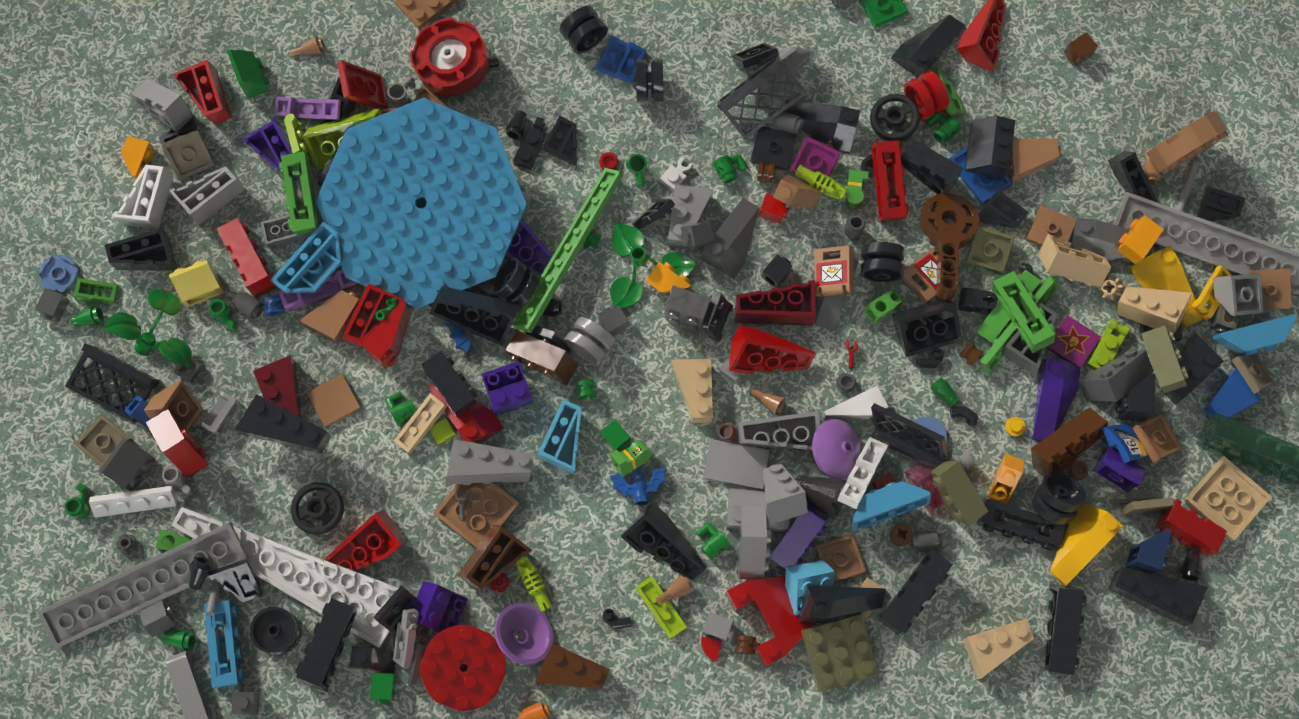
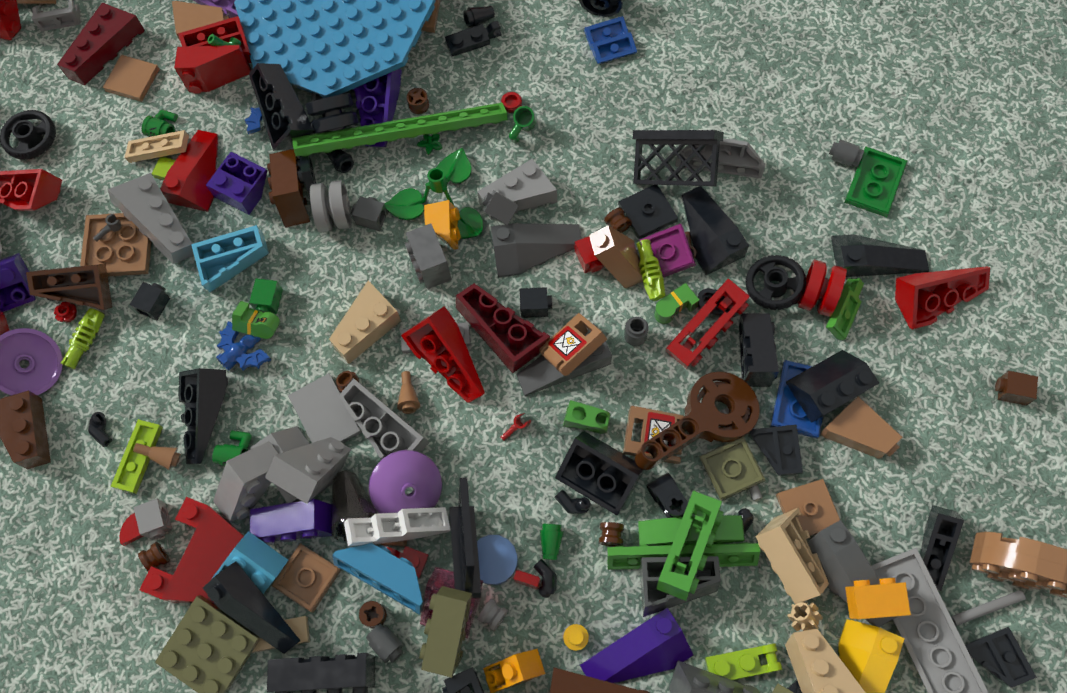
camera: 55 degrees right, 5 degrees down
(275, 424) = (62, 49): black wedge -> none
(449, 383) = (201, 134): black wedge -> none
(547, 516) = (150, 300): none -> black brick
(549, 216) = (416, 95): none -> reddish brown wheel
(562, 141) = (496, 55): black wing -> none
(586, 389) = (290, 241): green wheel -> none
(649, 80) = (607, 68): black wheel -> none
(660, 209) = (498, 166): black wing -> none
(675, 176) = (547, 158): white plate -> none
(716, 316) = (441, 281): black plate -> none
(725, 168) = (589, 190): green piece -> none
(754, 55) = (710, 124): black plate -> none
(788, 123) = (680, 202): dark grey brick -> none
(846, 383) = (482, 445): dark grey plate -> none
(857, 407) = (480, 478): white slope -> none
(882, 261) = (623, 379): black wheel -> none
(946, 130) = (810, 335): green piece -> none
(957, 425) = (527, 579): none -> red tile
(1073, 342) = (715, 624): magenta tile -> none
(1150, 171) = (961, 558): medium nougat cone -> none

